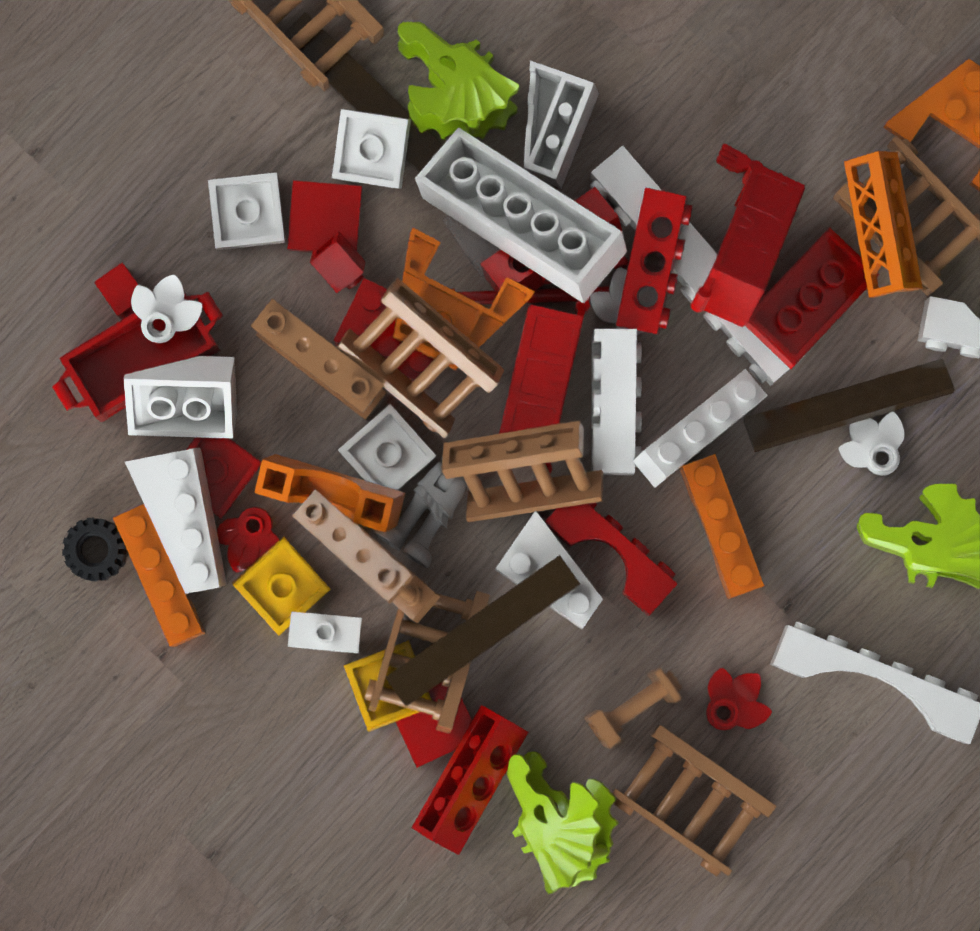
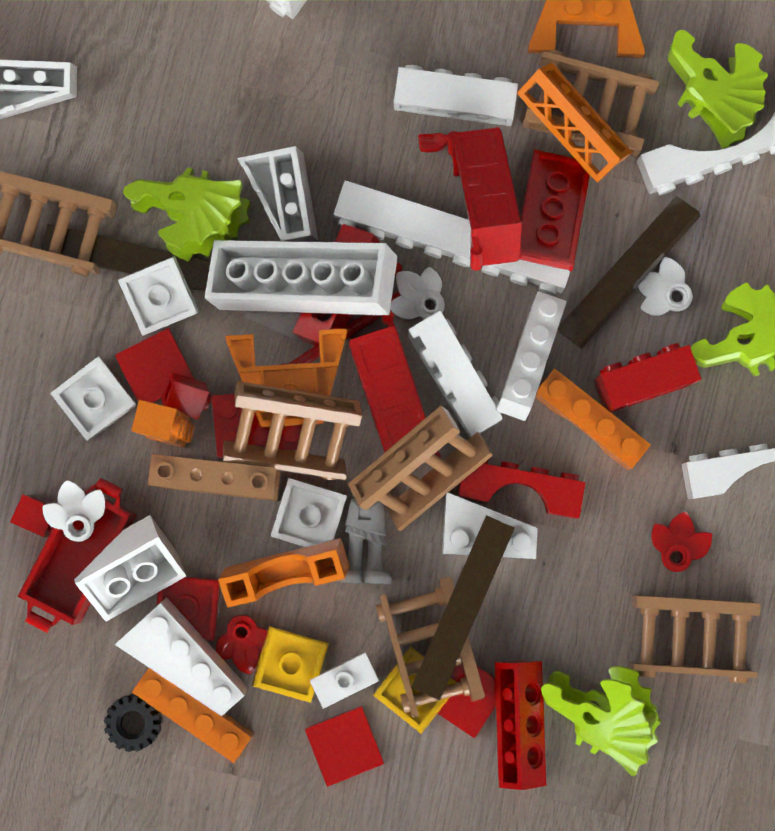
camera: 25 degrees left, 0 degrees up
(285, 698) = (344, 746): none -> red tile
(300, 277) = (163, 424): none -> orange arch
(366, 556) = (341, 606): medium nougat fence -> none
(608, 724) = (612, 595): medium nougat fence -> none
(654, 206) = (397, 210): red brick -> none
(783, 127) = (455, 95): none -> white brick
(800, 518) = (647, 377): none -> red brick

